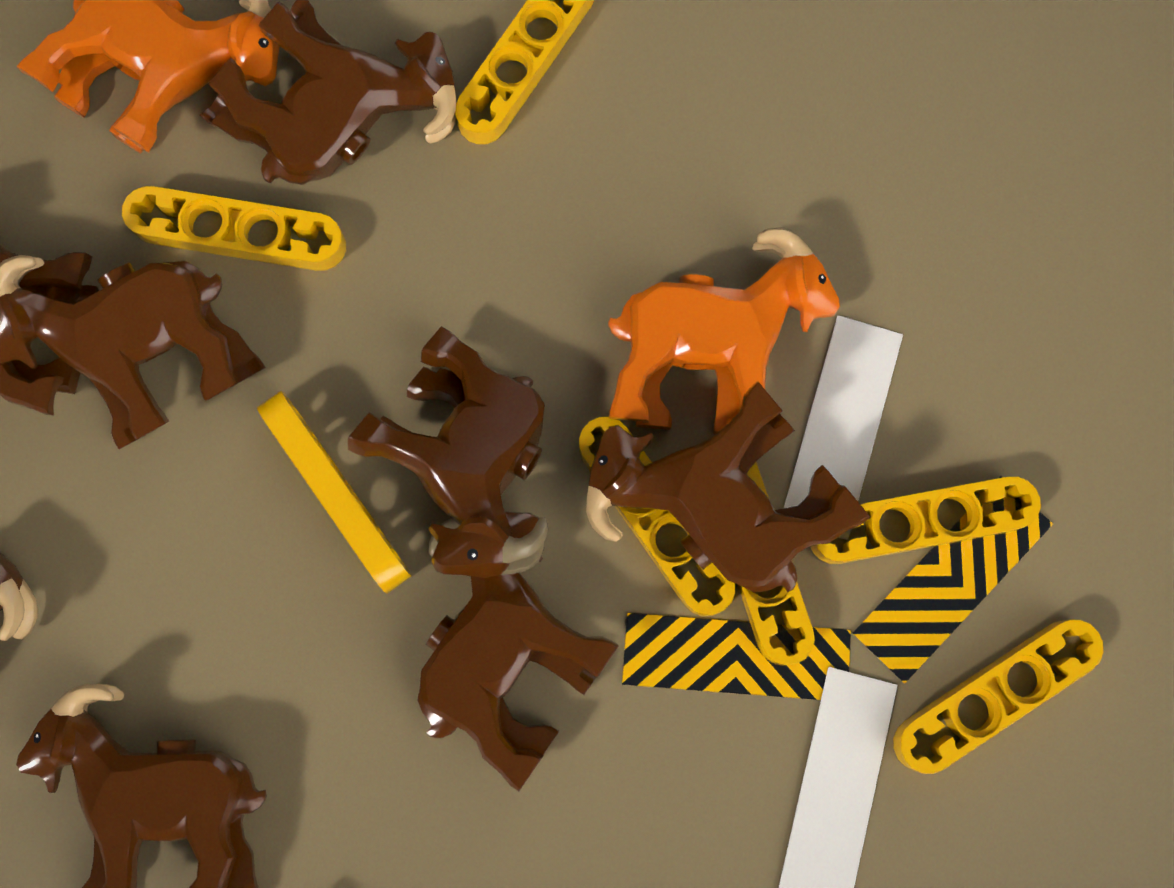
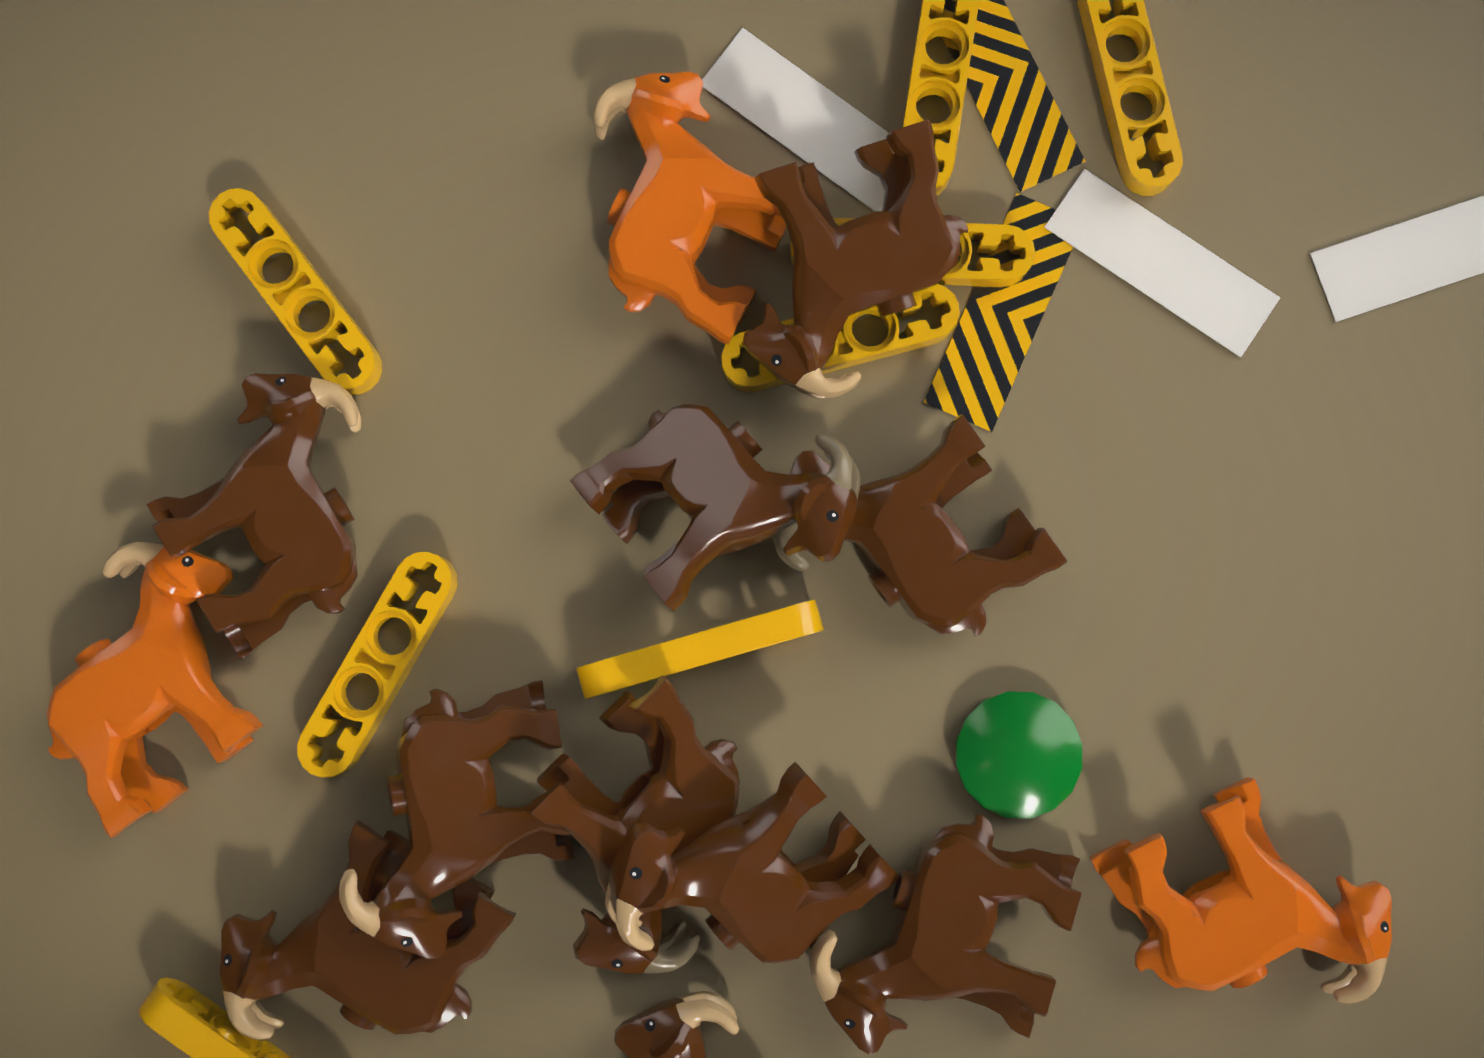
camera: 65 degrees left, 5 degrees up
(135, 601) = (746, 877): none -> reddish brown animal
(149, 499) = (682, 787): none -> reddish brown animal
(333, 812) = (1018, 754): none -> green dish

